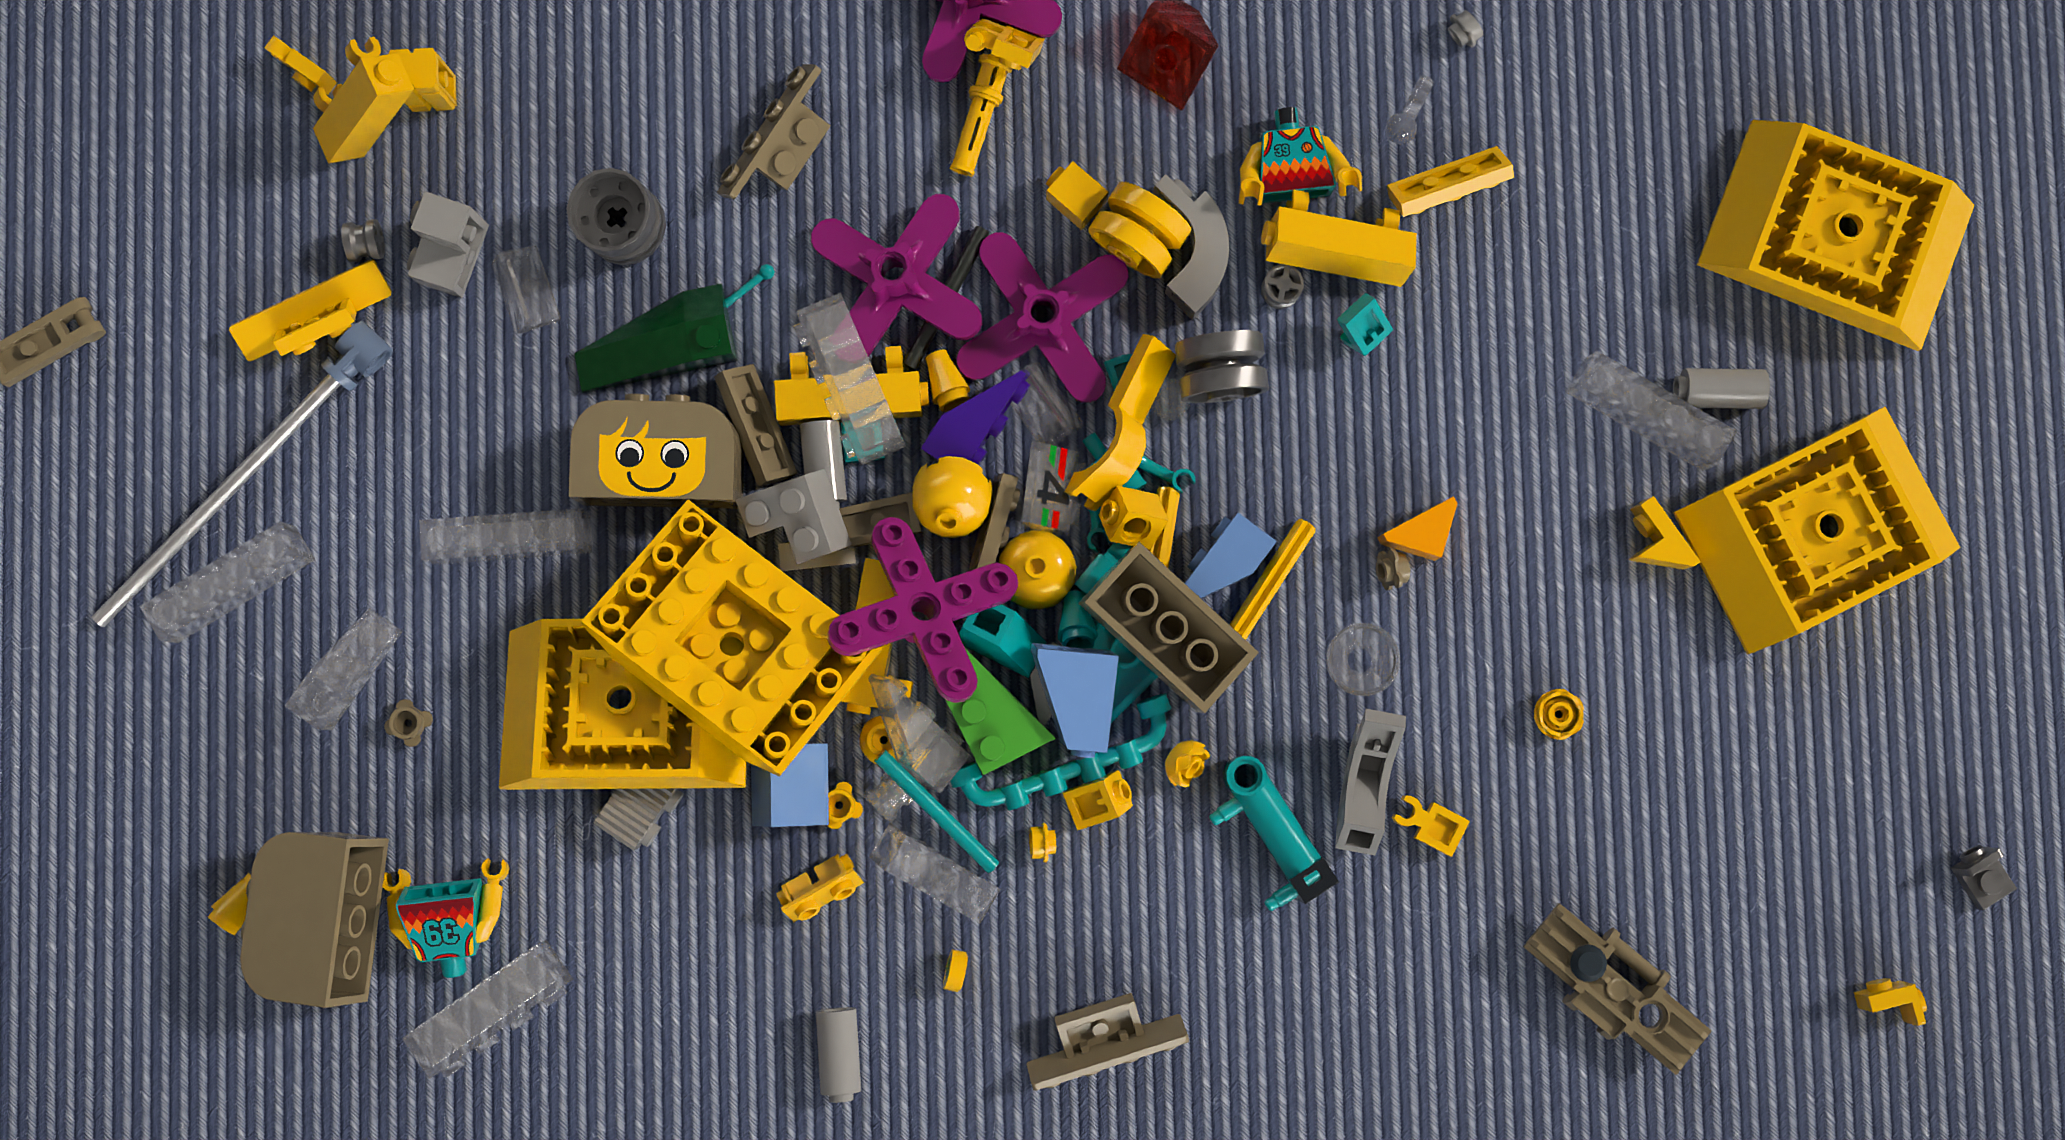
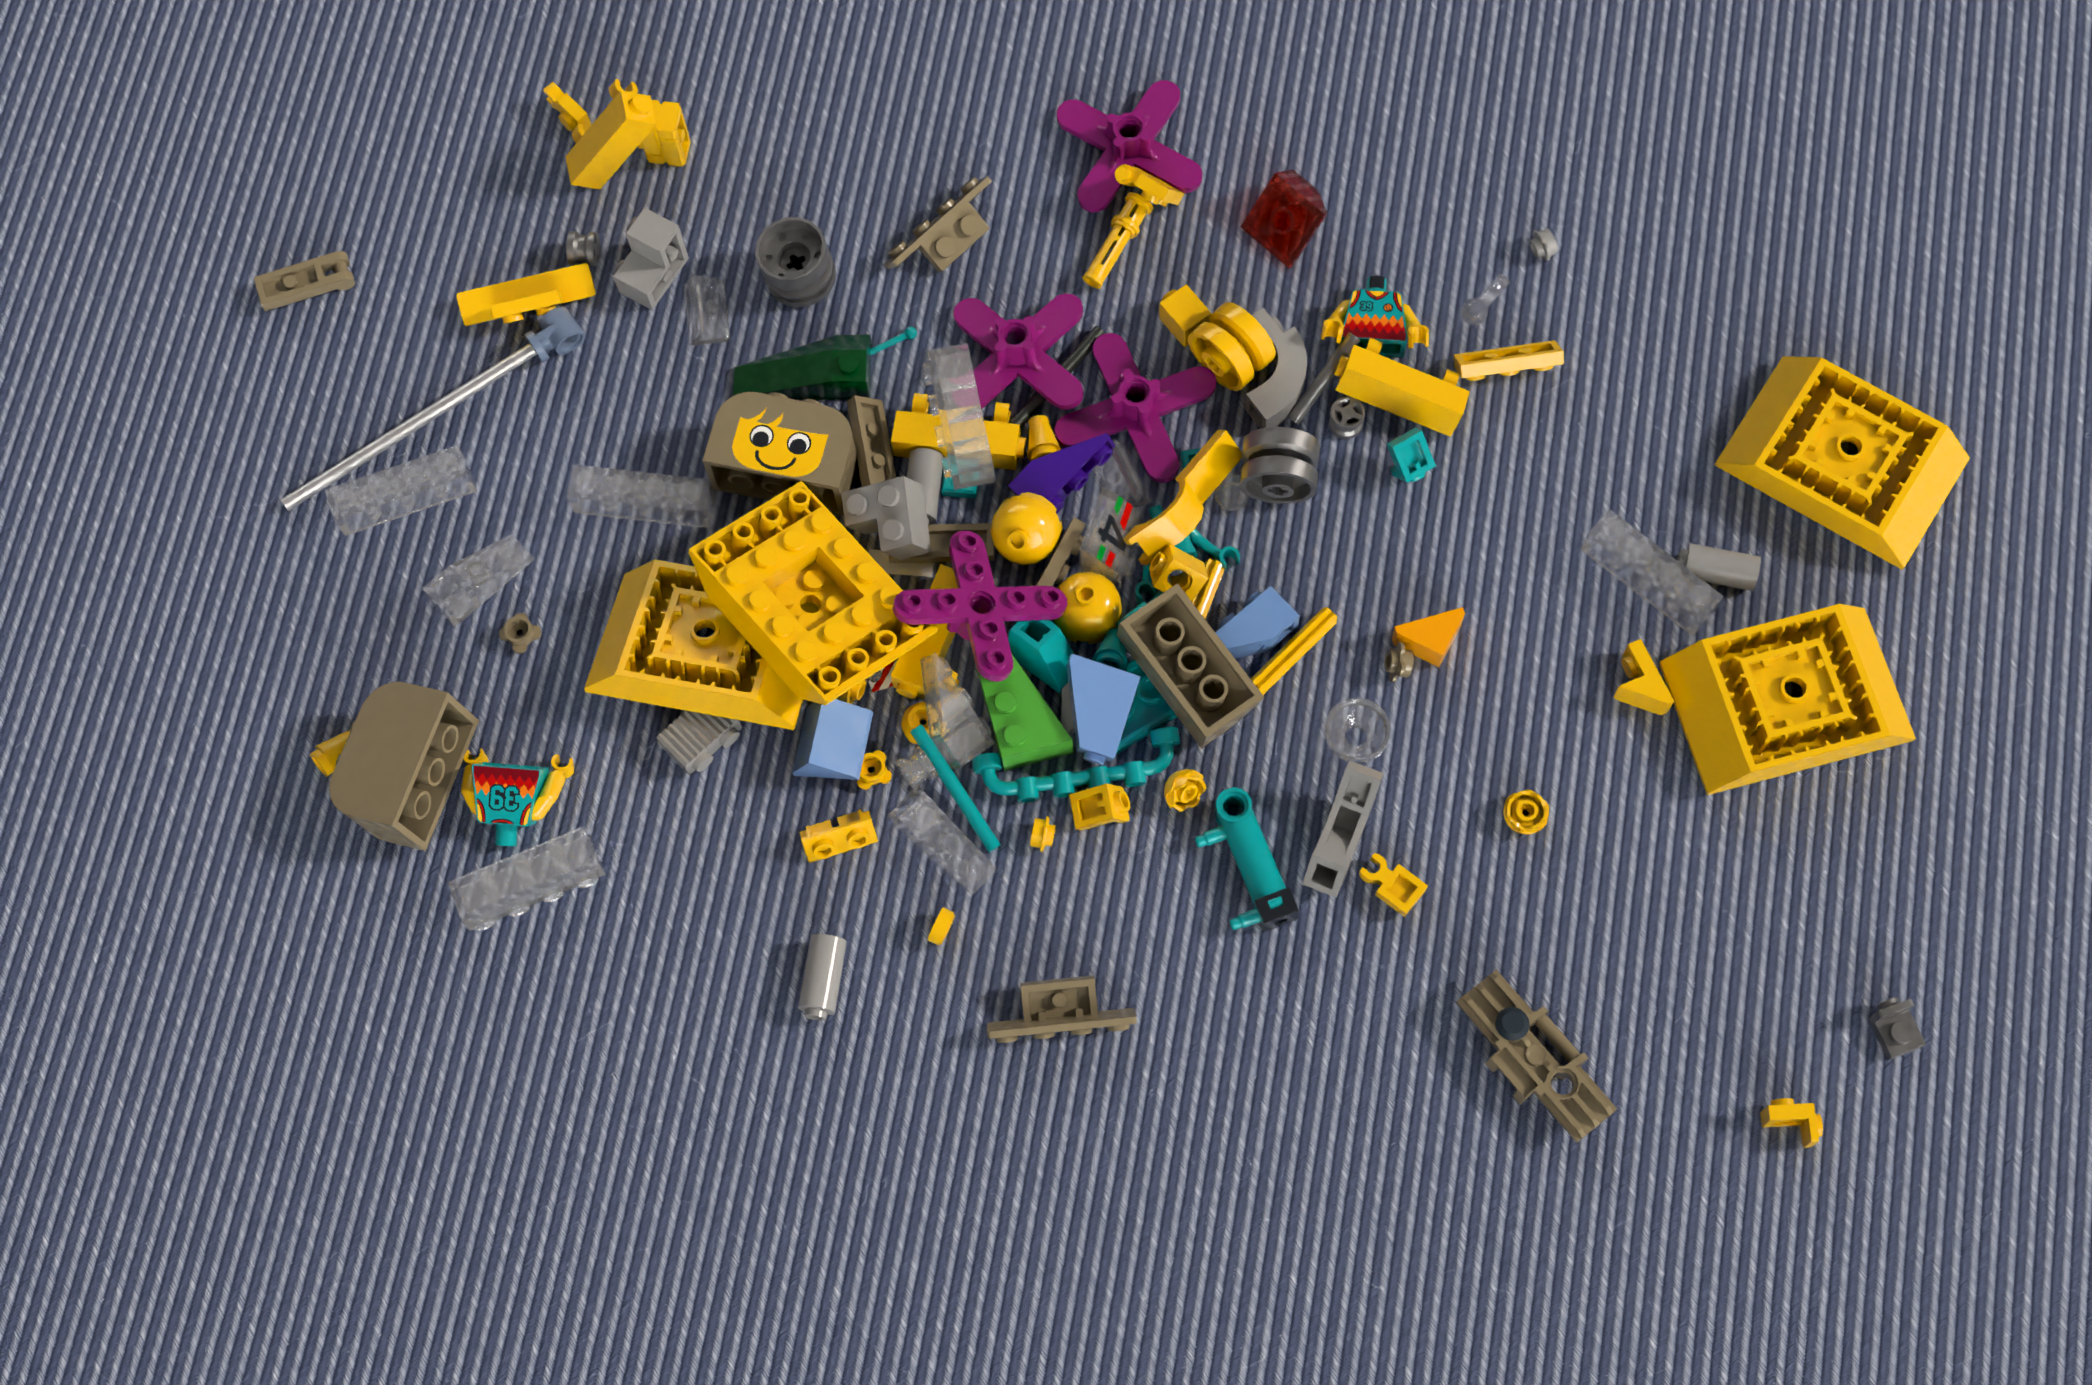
camera: 20 degrees right, 15 degrees down
(1248, 246) = (1322, 379): none -> flat silver bar

